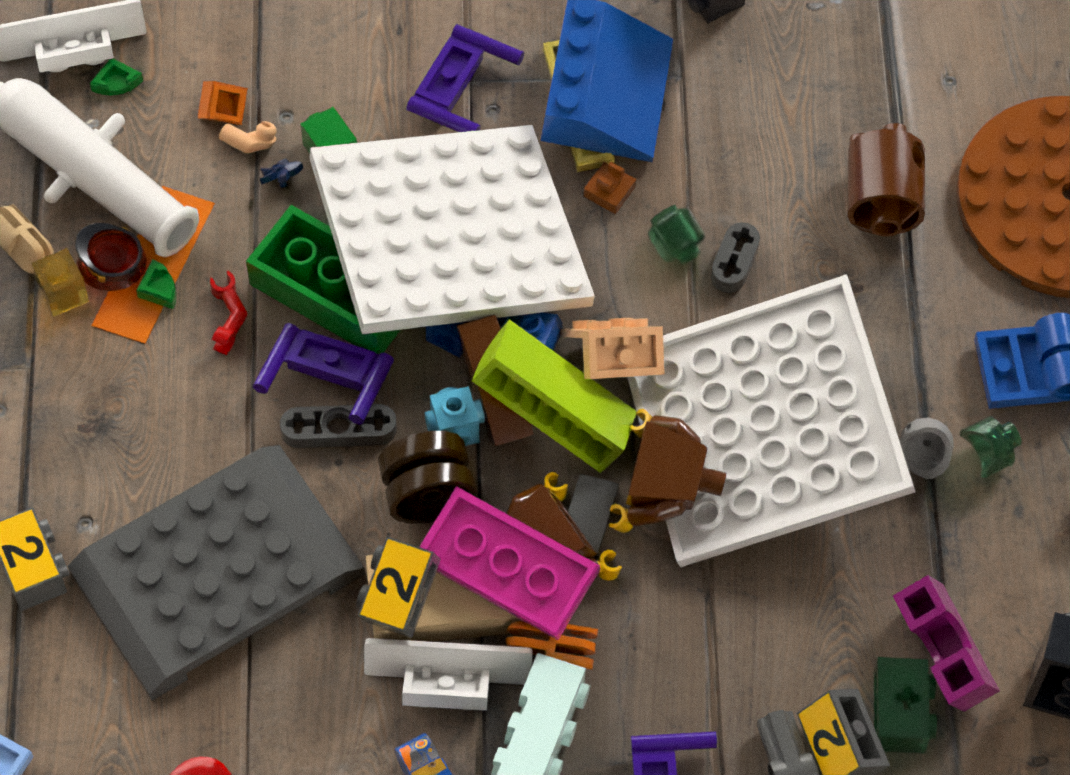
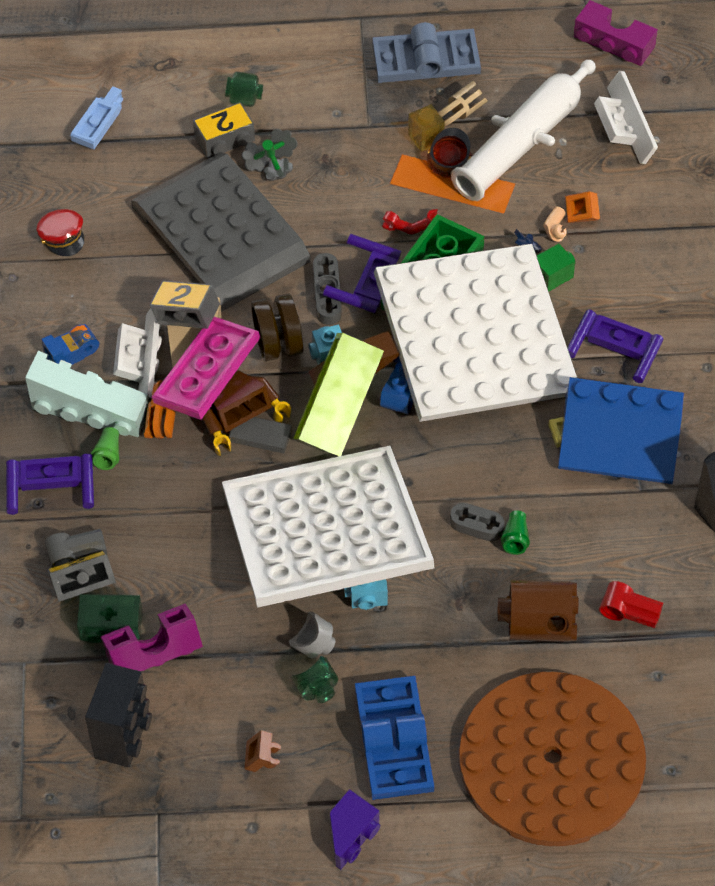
camera: 90 degrees right, 5 degrees down
(104, 486) = (259, 156): none -> dark grey plant
(115, 79) = (599, 149): green tile -> none
(158, 286) = (432, 184): green tile -> none
(609, 187) = (533, 442): dark orange tile -> none
(617, 717) = (106, 451): none -> bright green cone
(619, 347) = (382, 431): light nougat bracket -> none
(666, 473) = (283, 461): reddish brown torso -> none
(676, 234) = (489, 479): clear green head -> none
(760, 211) = (516, 536): none -> green cone
(861, 100) = (623, 603): none -> red piece

